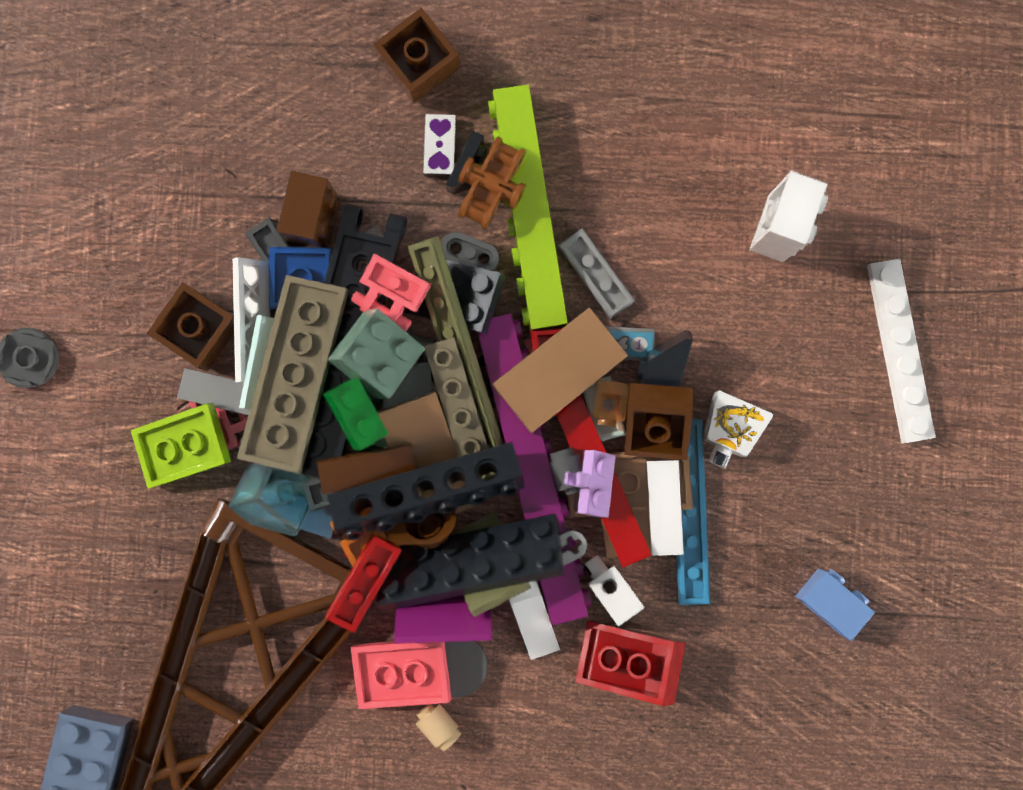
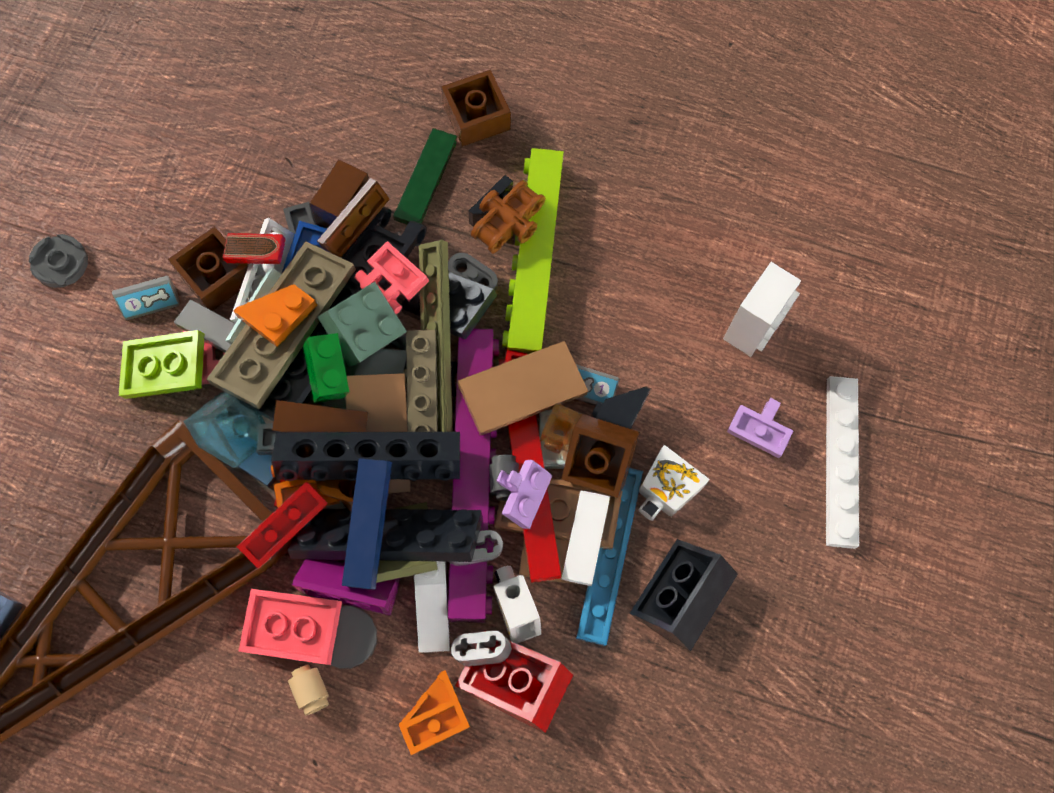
camera: 10 degrees right, 15 degrees down
(137, 375) = (146, 297): none -> slope
(234, 298) = (254, 248): none -> tile
(285, 367) = (277, 313): none -> orange wing
(329, 235) = (354, 218): none -> reddish brown tile
(385, 152) = (425, 177): none -> dark green tile
(439, 145) = (473, 182): white tile -> none
(450, 566) = (367, 524): none -> dark blue tile
(564, 717) = (434, 716): none -> orange wing
(592, 649) = (481, 653): none -> light grey beam
(596, 273) = (580, 322): light grey tile -> none
(773, 533) = (684, 593): none -> black slope
(811, 341) = (761, 429): none -> lavender plate
(835, 604) = (728, 677): medium blue brick -> none

